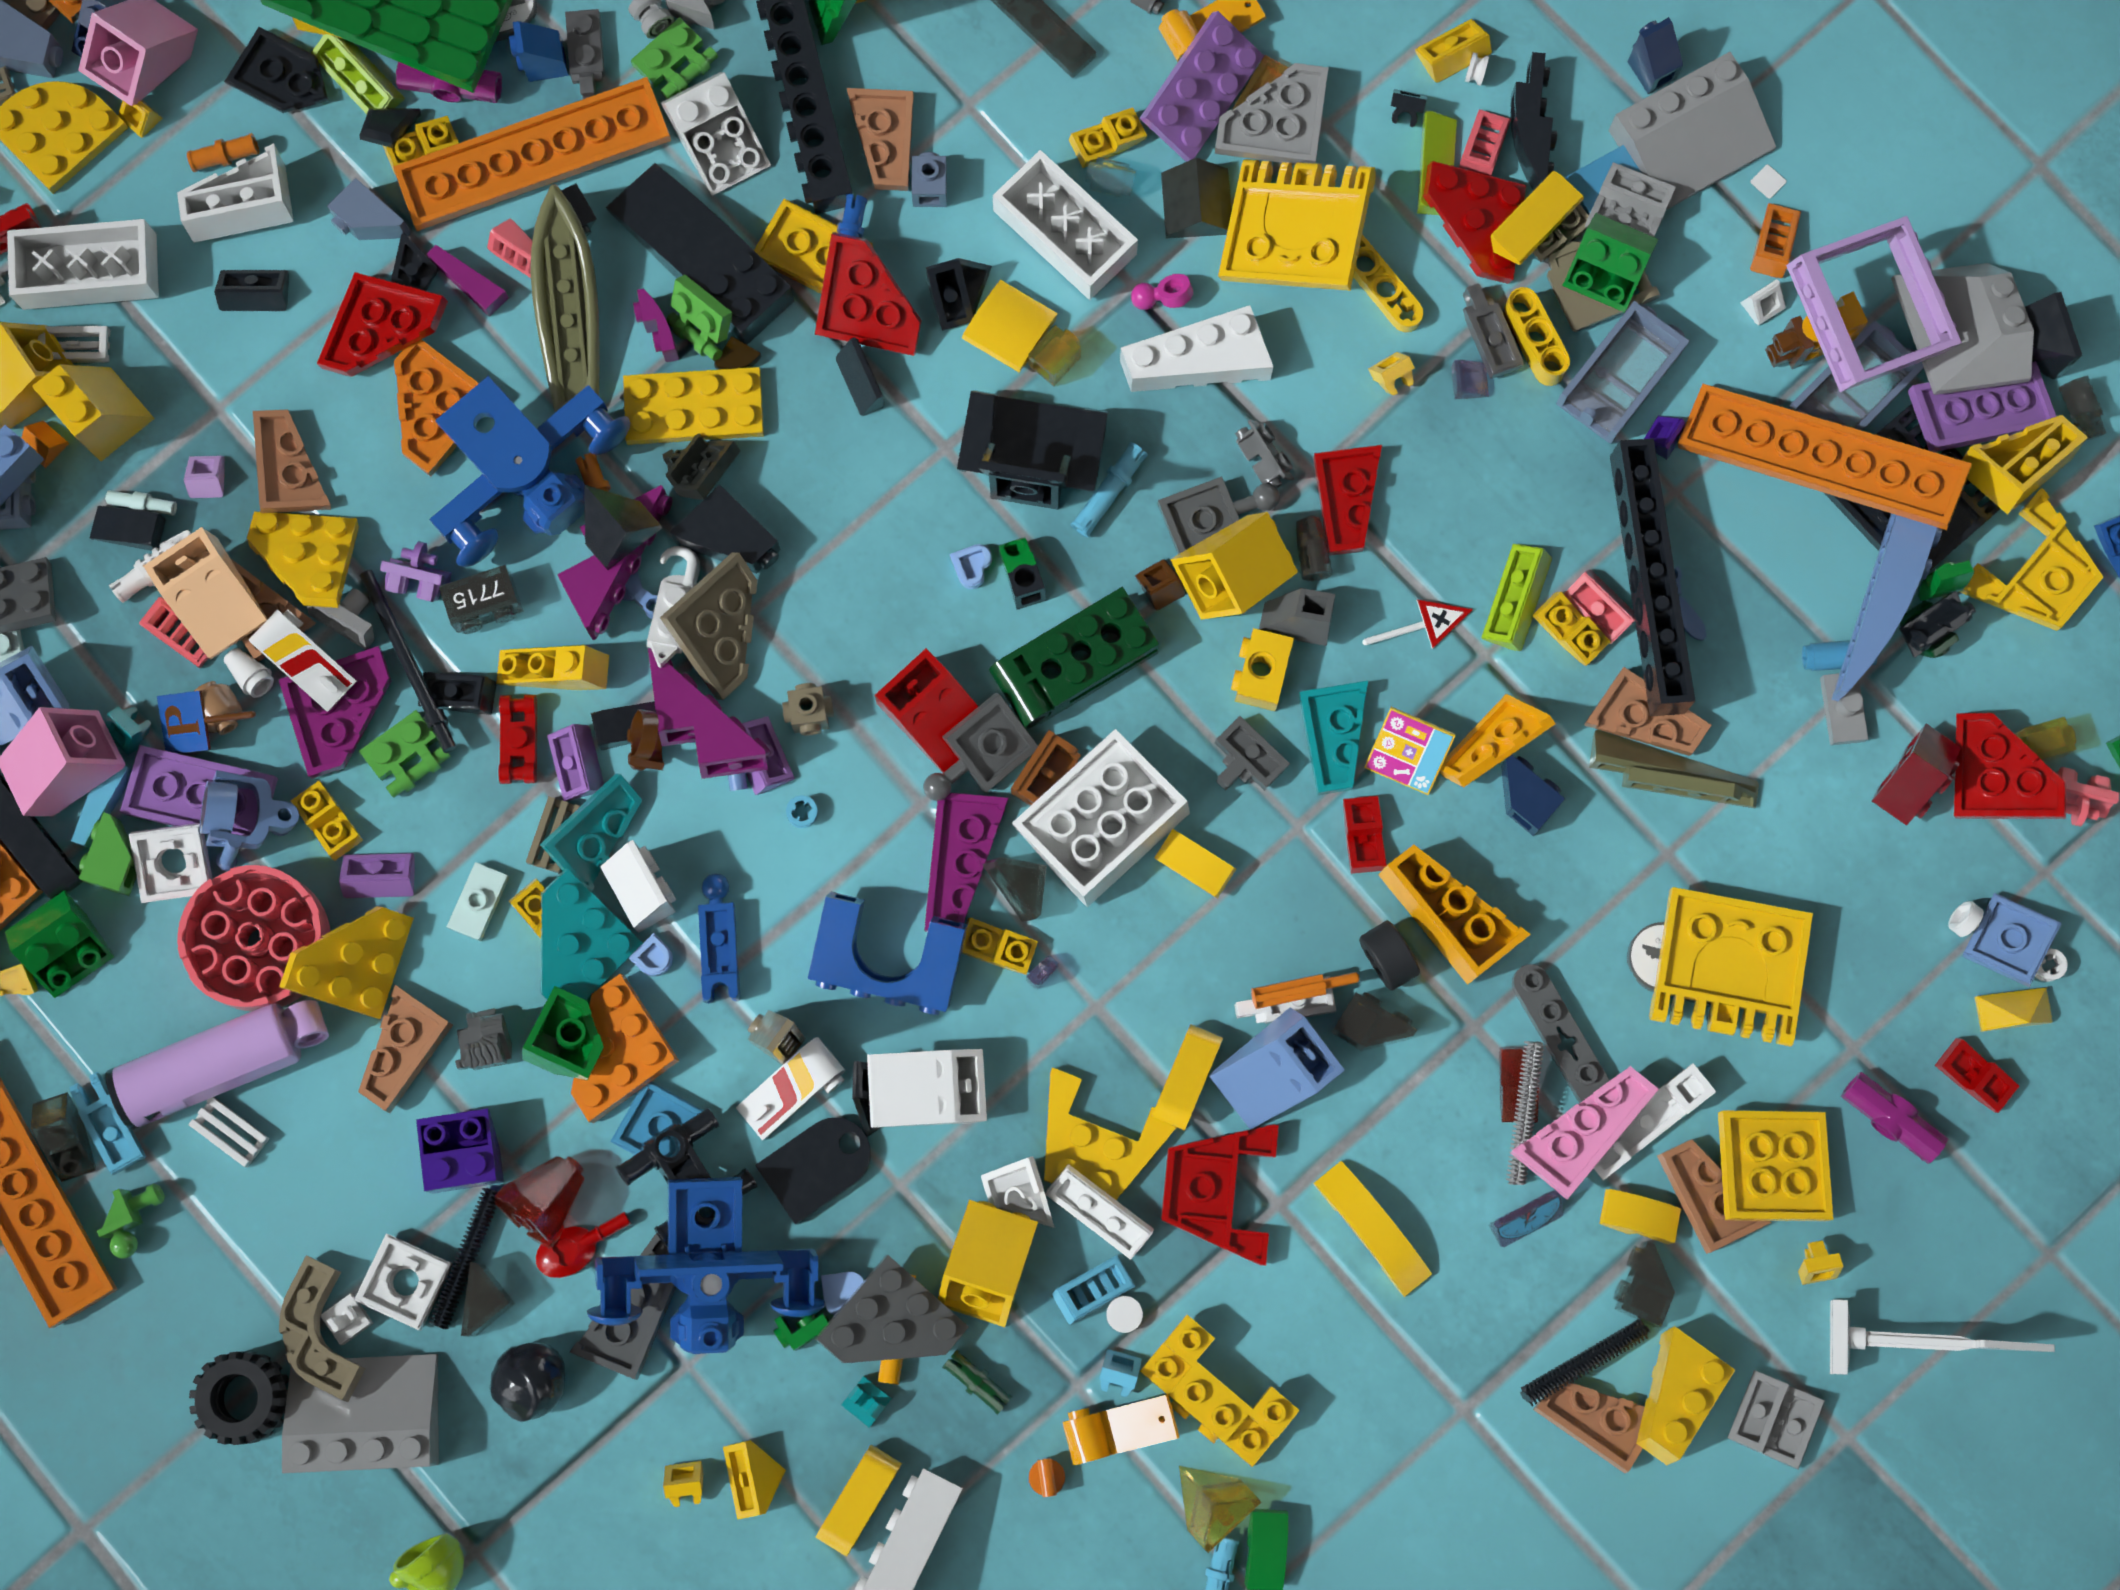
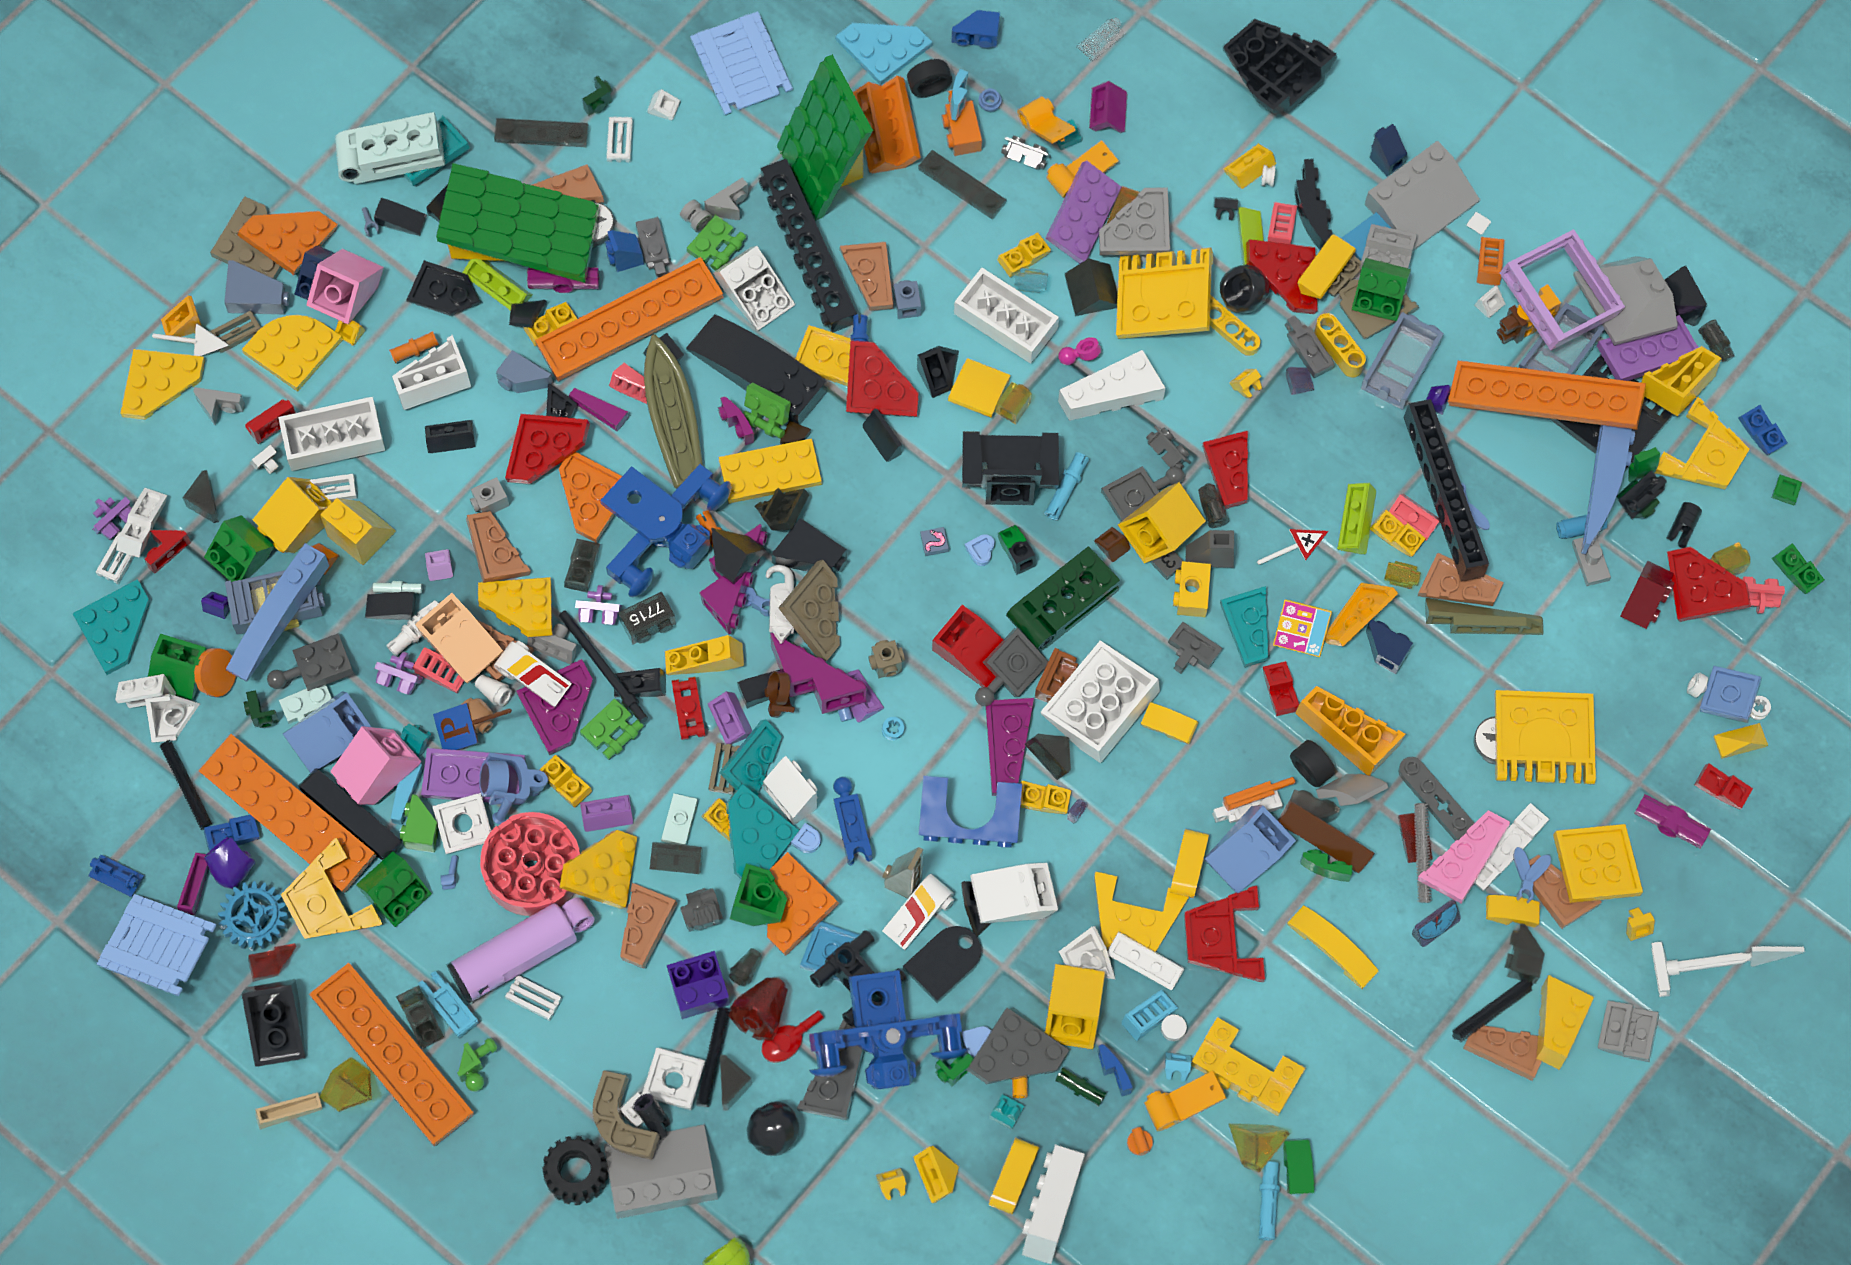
camera: 10 degrees left, 10 degrees down
(121, 623) = (387, 672): none -> medium lavender hips
(142, 942) = (449, 881): none -> medium blue hand
(289, 388) = (489, 497): none -> light grey brick
(359, 1335) = (652, 1114): none -> black hinge
(405, 507) = (582, 565): none -> clear smoke slope
(461, 959) = (676, 858): none -> clear smoke hinge
(532, 1134) = (744, 970): none -> clear smoke cone
(907, 544) = (934, 541): none -> sand blue tile
(1024, 1357) = (1110, 1065): none -> blue slope
(1234, 627) = (1167, 564): none -> dark grey tile
(1373, 1104) = (1318, 863): none -> green slope
(1387, 1069) = (1324, 837): none -> reddish brown slope
(1412, 234) = (1244, 289): none -> black piece
(1439, 1005) = (1352, 788): none -> light grey slope
(1567, 691) = (1402, 574): none -> clear yellow brick
(1673, 1168) = (1527, 874): none -> medium blue piece
(1990, 672) = (1685, 521): none -> black hinge

